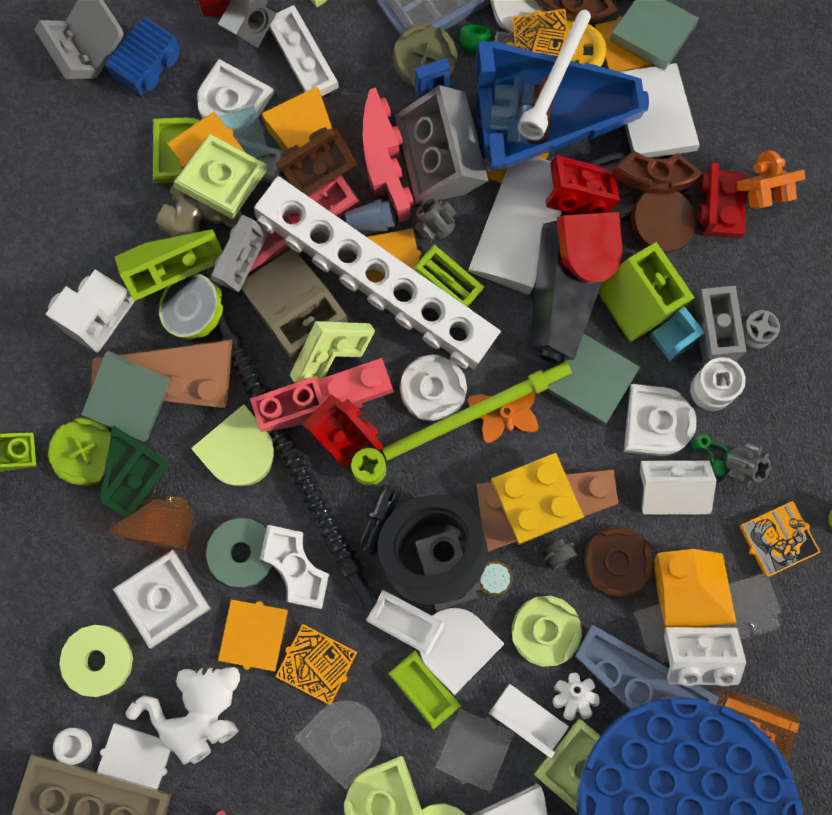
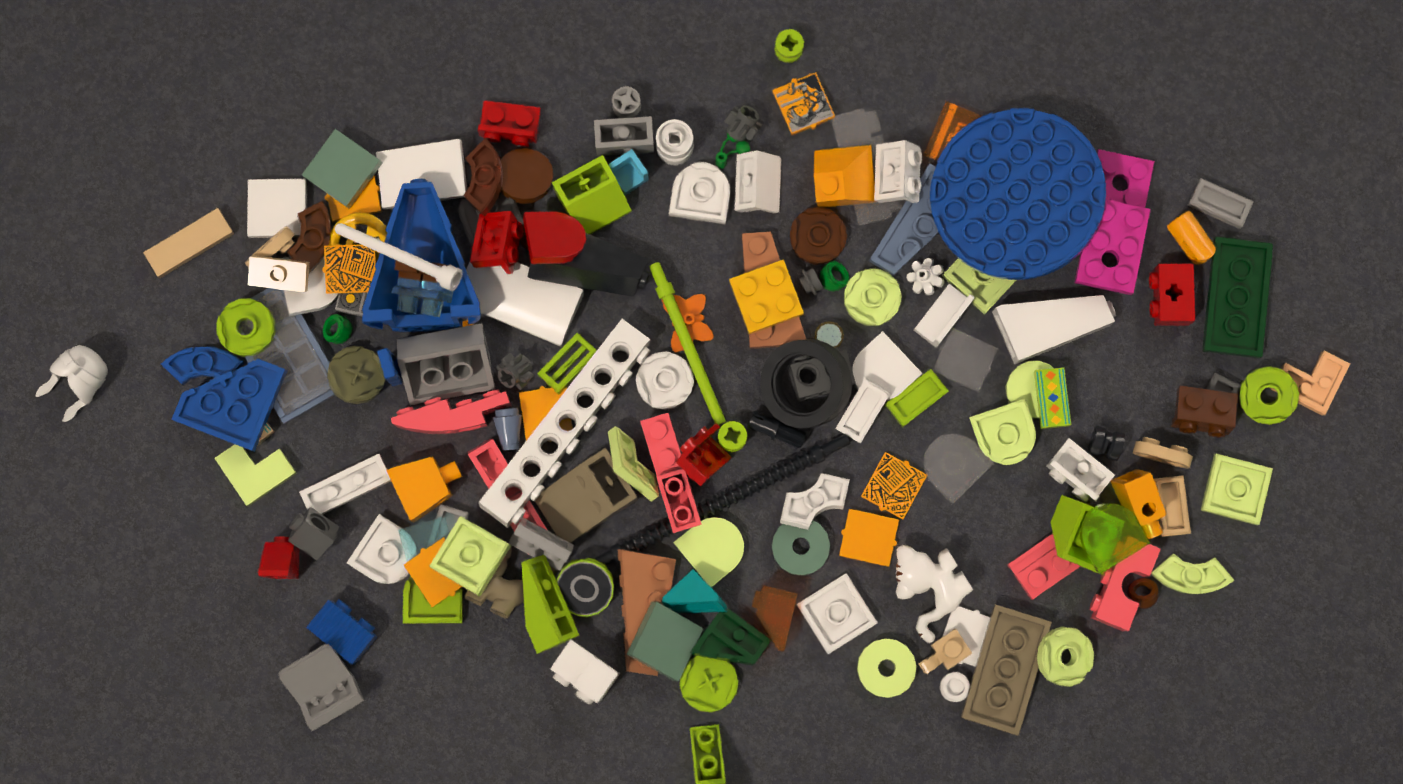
camera: 90 degrees left, 5 degrees up
(115, 736) = (948, 650): none -> tan plate
(181, 428) = (693, 596): none -> teal slope
(317, 161) = (463, 470): reddish brown bracket -> none
(564, 574) = (827, 279): none -> green piece
(596, 380) = (664, 241): sand green tile -> none
(771, 175) = (493, 81): orange hips -> none

